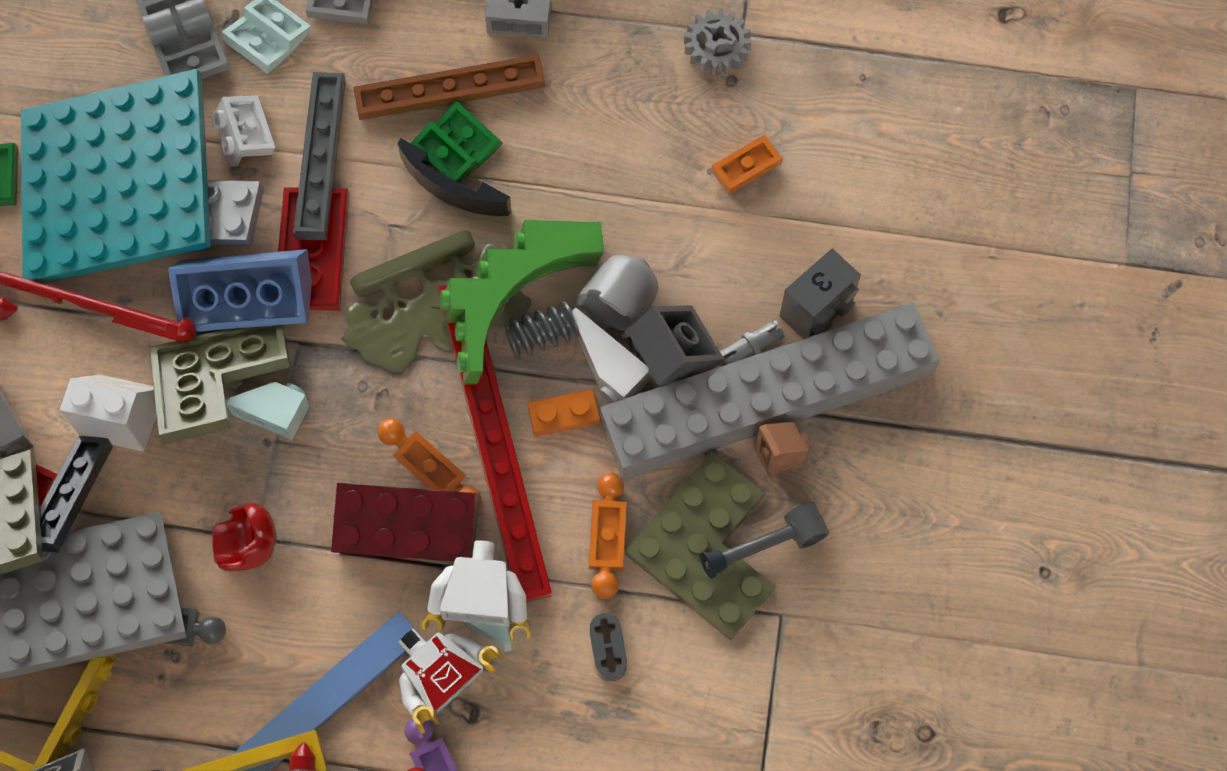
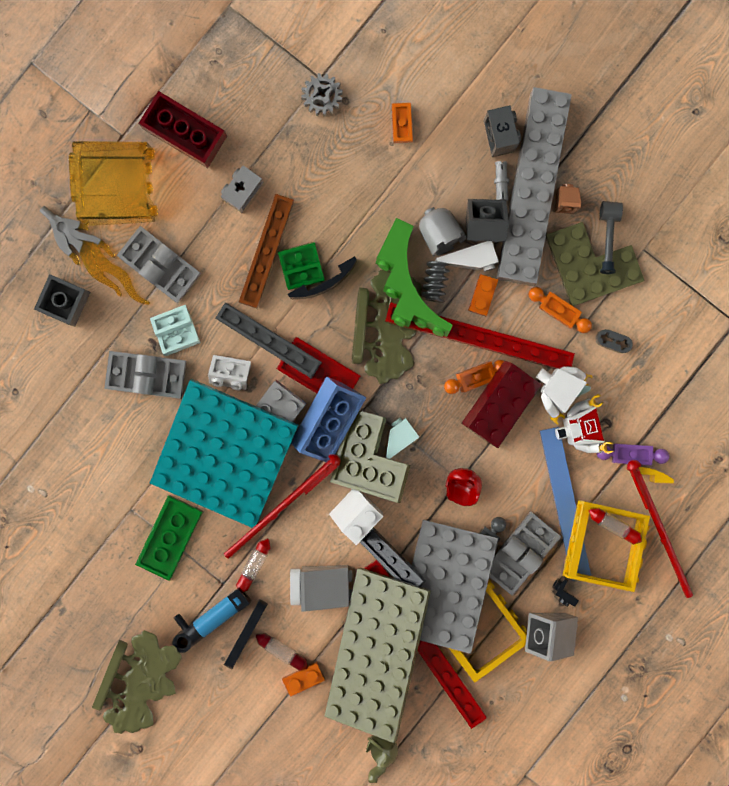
camera: 50 degrees left, 20 degrees up
(183, 691) = (522, 553): none -> light grey plate

